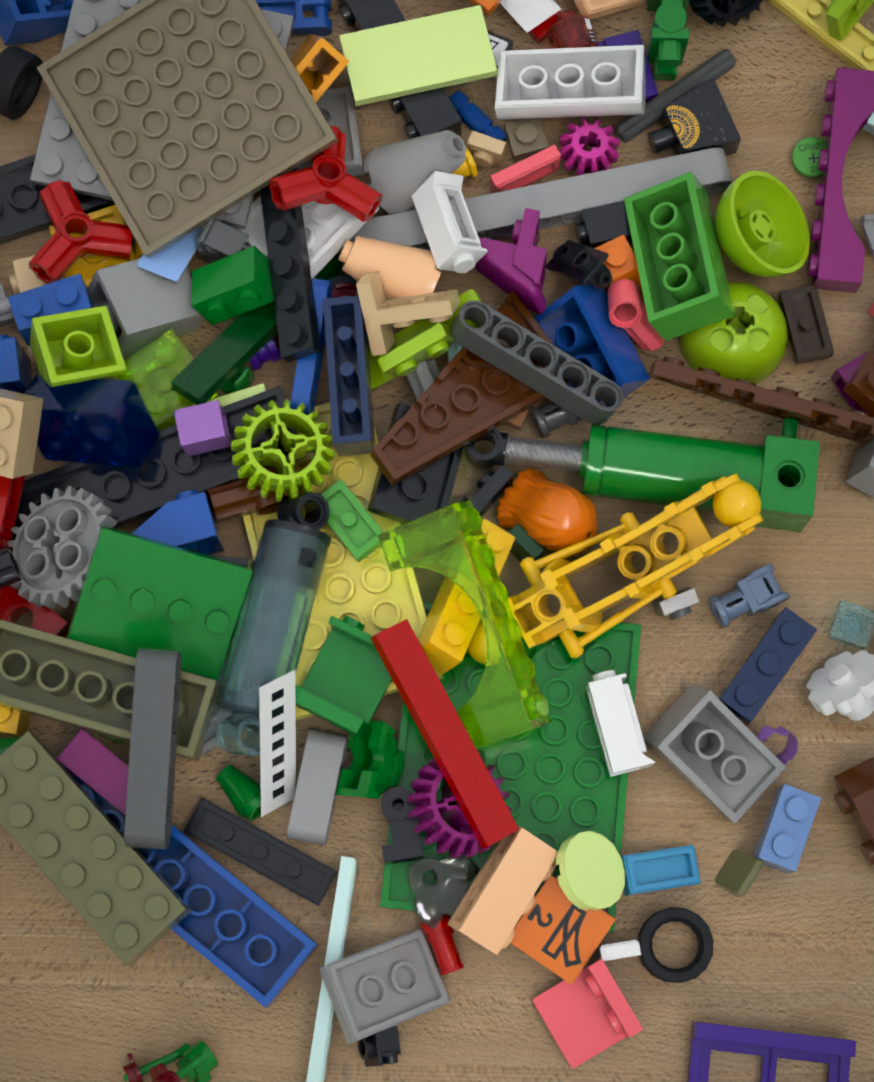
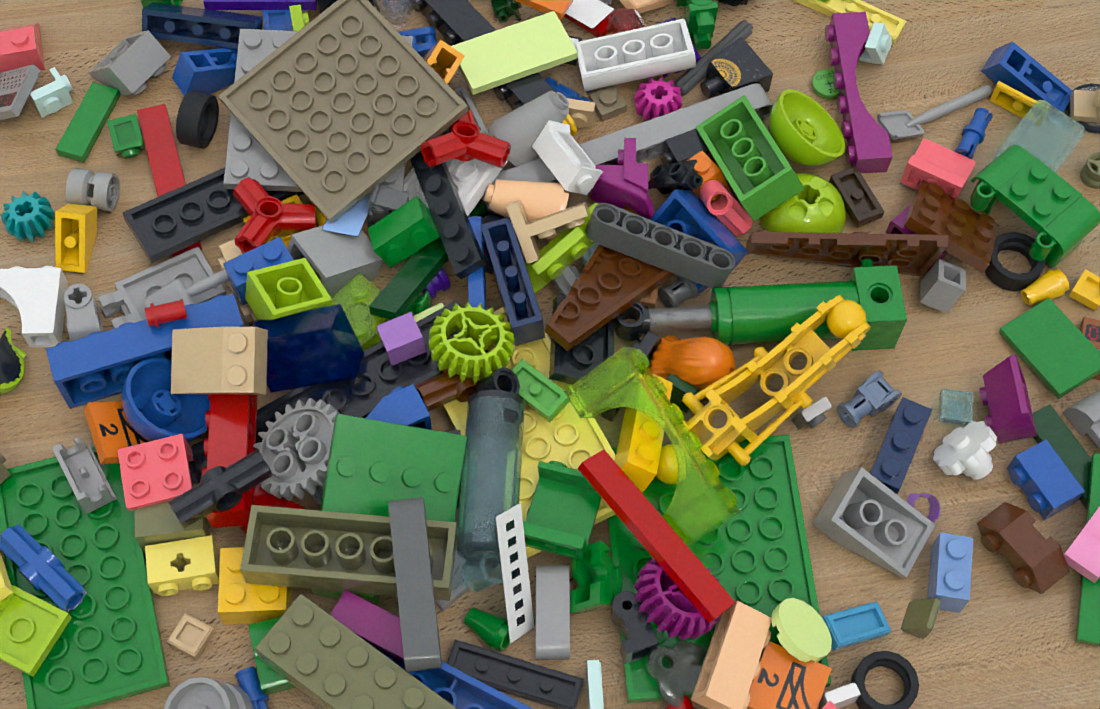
camera: 15 degrees left, 15 degrees down
(527, 170) = (619, 119): coral tile -> none
(617, 723) = (792, 512): white window -> none

